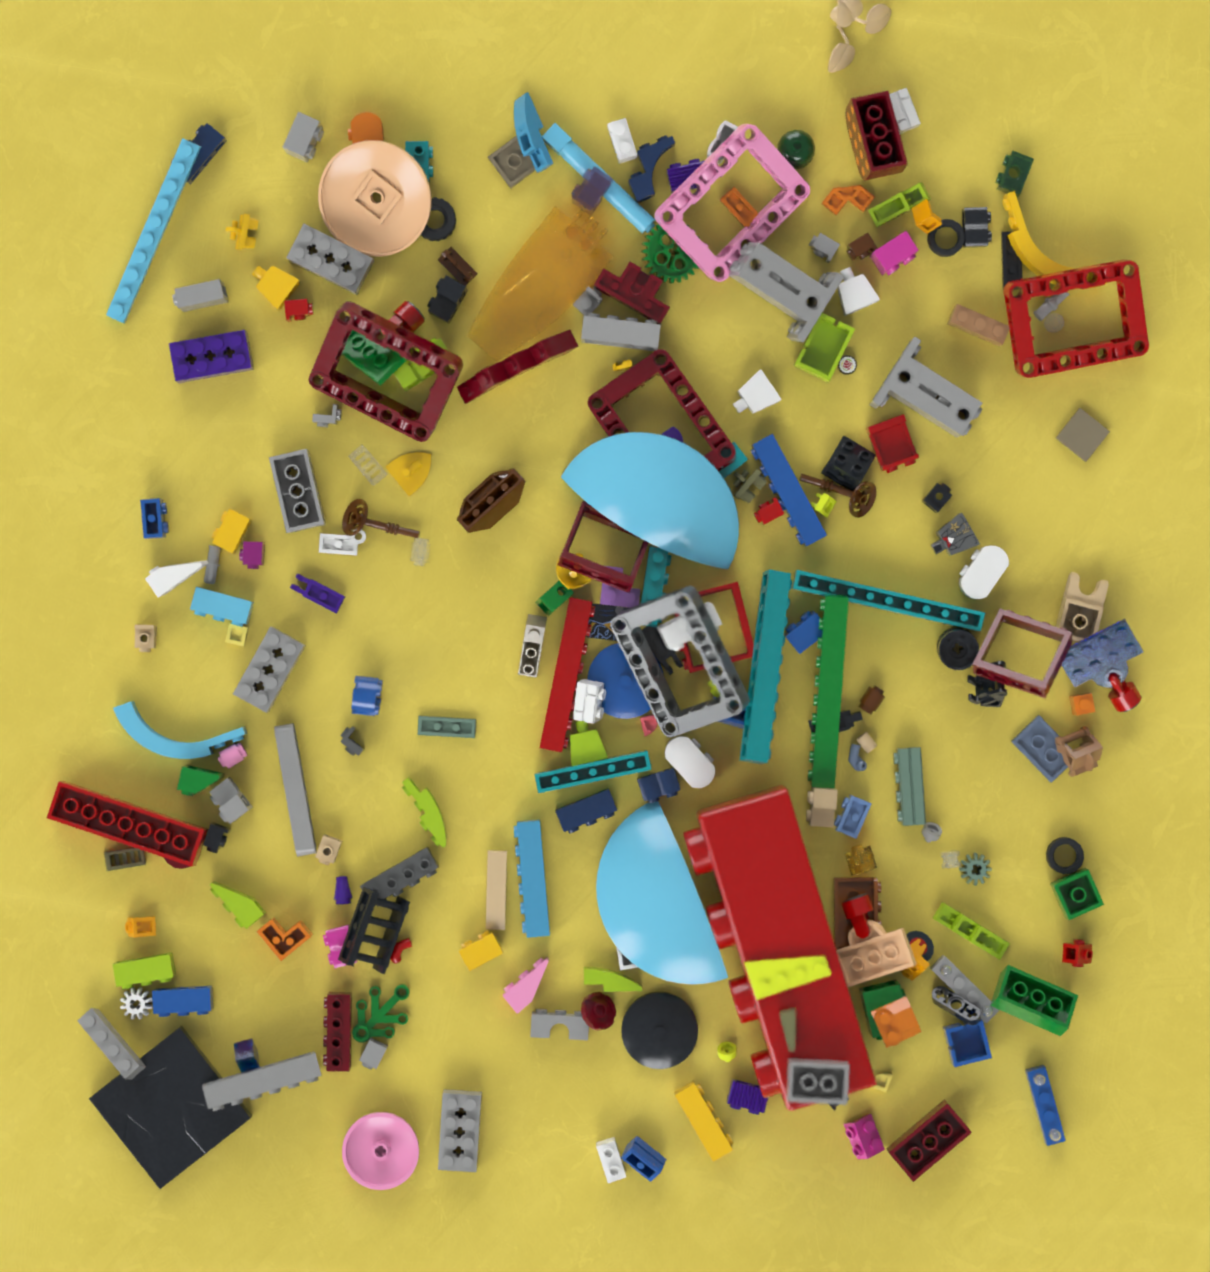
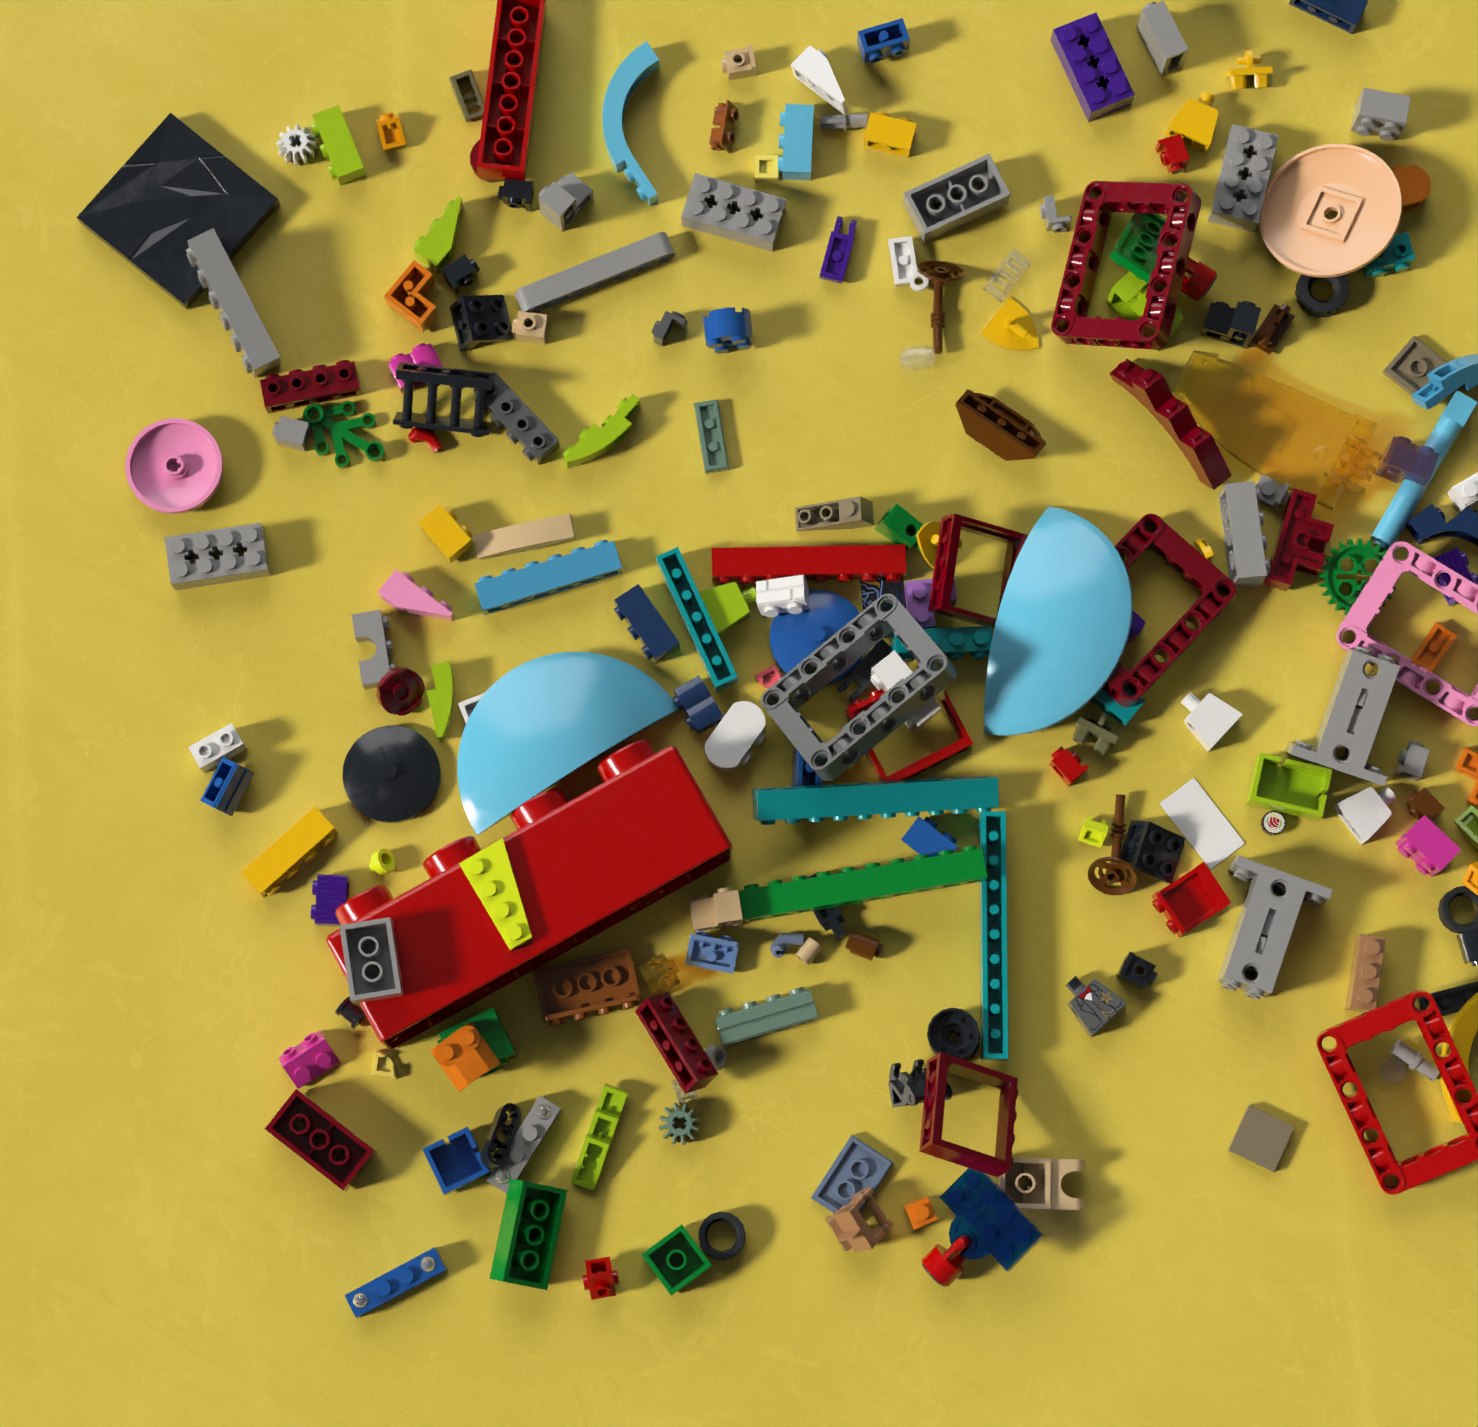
camera: 70 degrees right, 10 degrees down
(111, 1043) = (242, 123): light grey brick -> none
(182, 1000) = (310, 197): blue brick -> none
(187, 657) = (726, 116): none -> dark orange hinge
(196, 779) = (580, 151): green slope -> none
(232, 755) = (620, 192): bright pink brick -> none
(246, 1055) = (261, 283): clear blue brick -> none
(252, 554) = (867, 164): magenta brick -> none
(272, 895) = (460, 273): none -> black brick
(314, 886) = (480, 320): none -> black bracket
(342, 891) = (483, 355): dark purple cone -> none
(788, 490) = (1100, 784): blue brick -> none
(788, 1021) = (435, 910): olive slope -> none
(834, 419) = (1202, 823): none -> white sticker
(871, 949) = (549, 1009): light nougat plate -> none
(916, 859) = (676, 1042): none -> dark red brick
(922, 949) = (554, 1064): plate -> none
(983, 571) = (1057, 1049): white brick -> none

